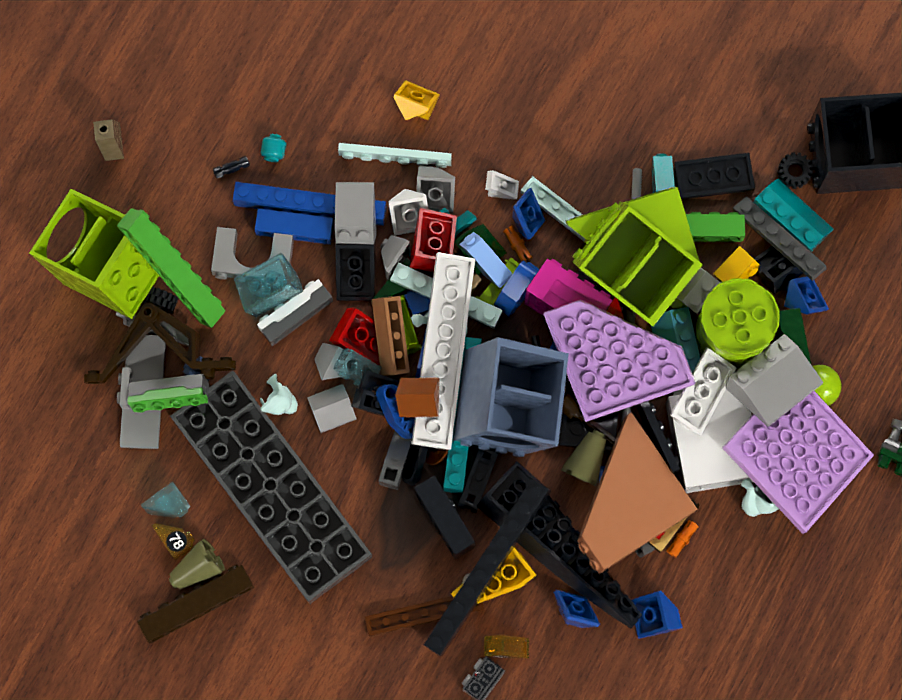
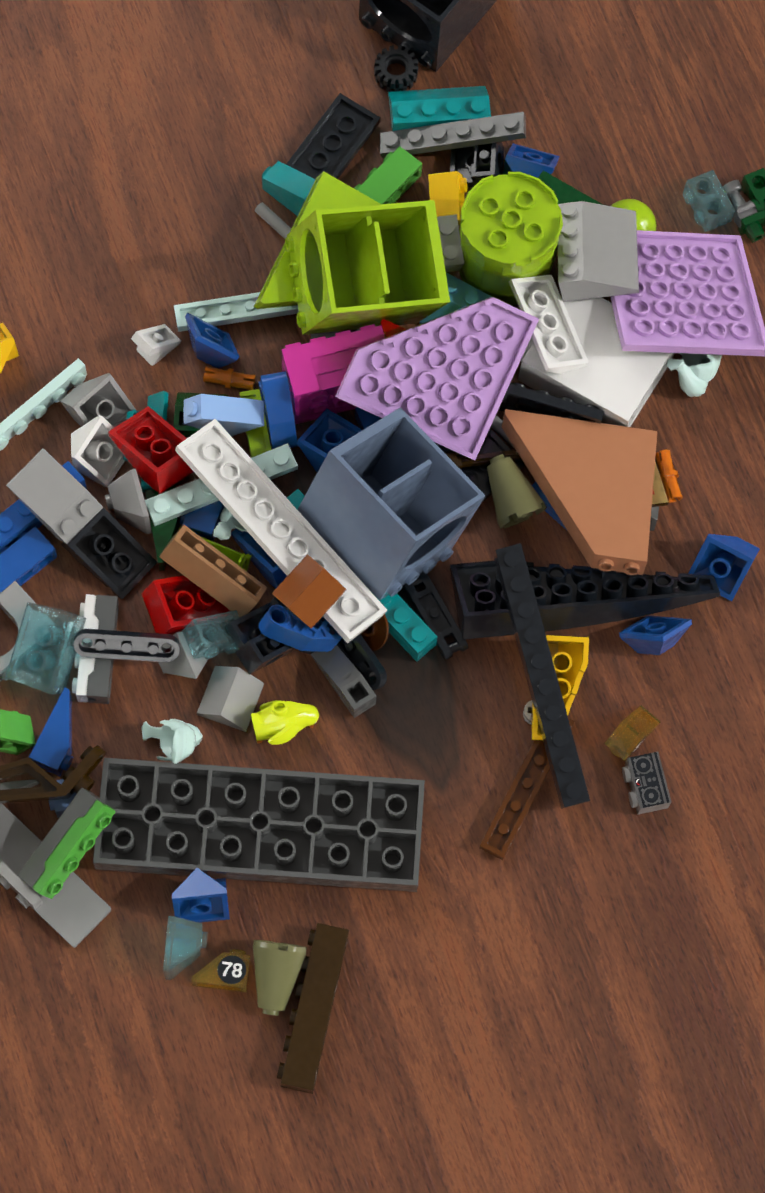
camera: 55 degrees left, 5 degrees down
(202, 491) = (201, 898): none -> blue slope
(224, 336) = (54, 744): none -> blue slope
(306, 326) = (126, 645): none -> plate
(341, 447) = (282, 720): none -> neon yellow animal
(444, 517) = (449, 678): black brick -> none
(528, 329) = (324, 435): none -> blue slope
(882, 420) = (714, 199): none -> clear light blue brick

